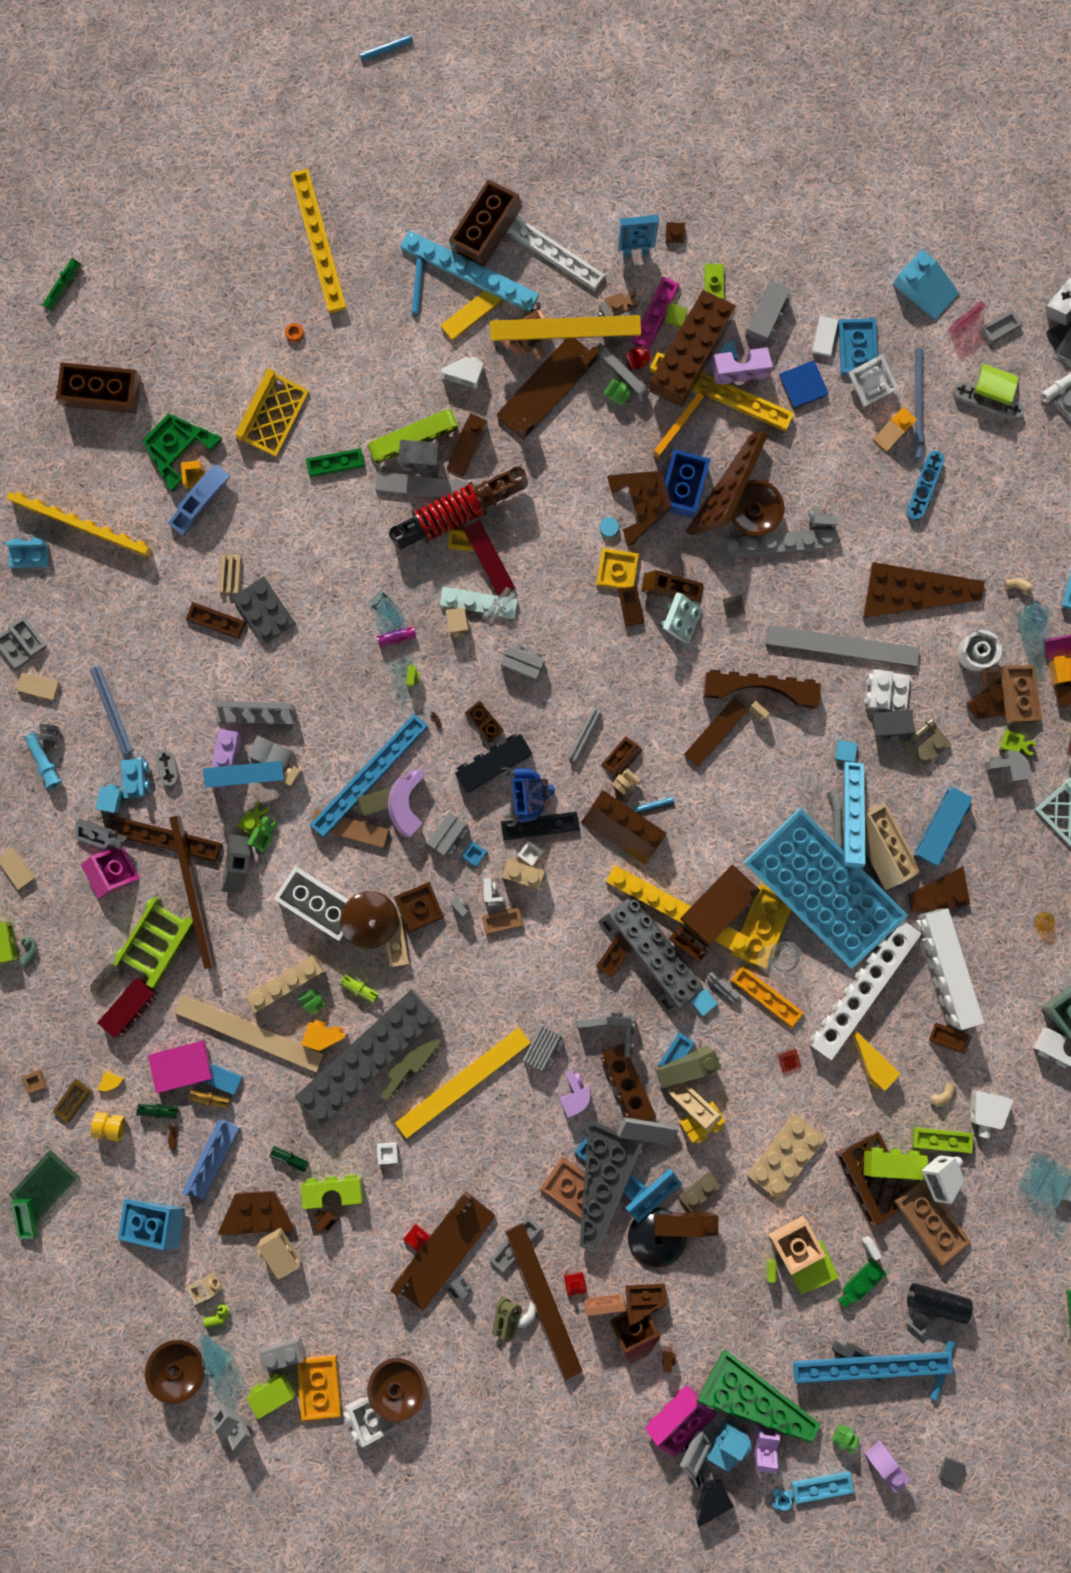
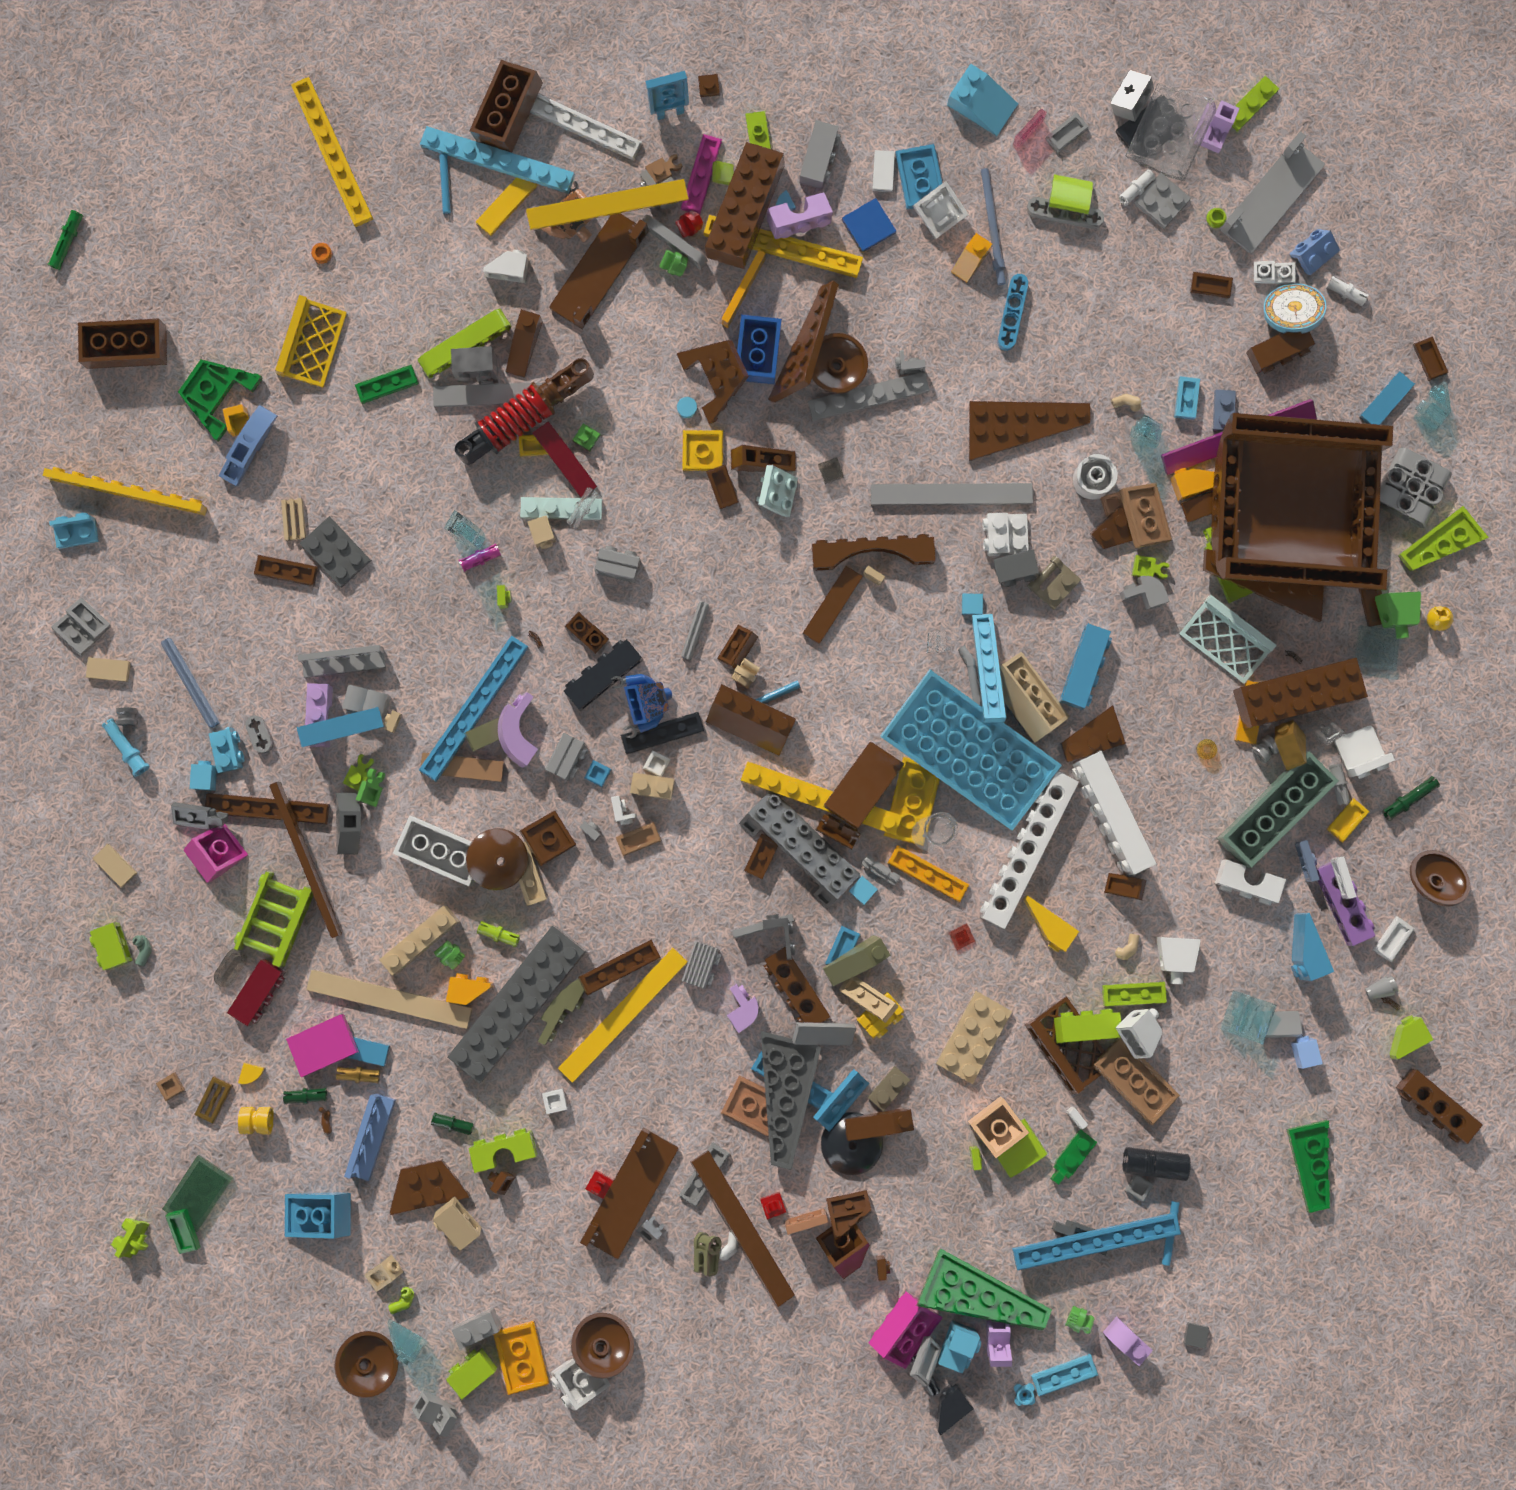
camera: 10 degrees left, 0 degrees up
(466, 1038) = (619, 967): none -> reddish brown tile
(512, 540) = (586, 437): none -> bright green tile

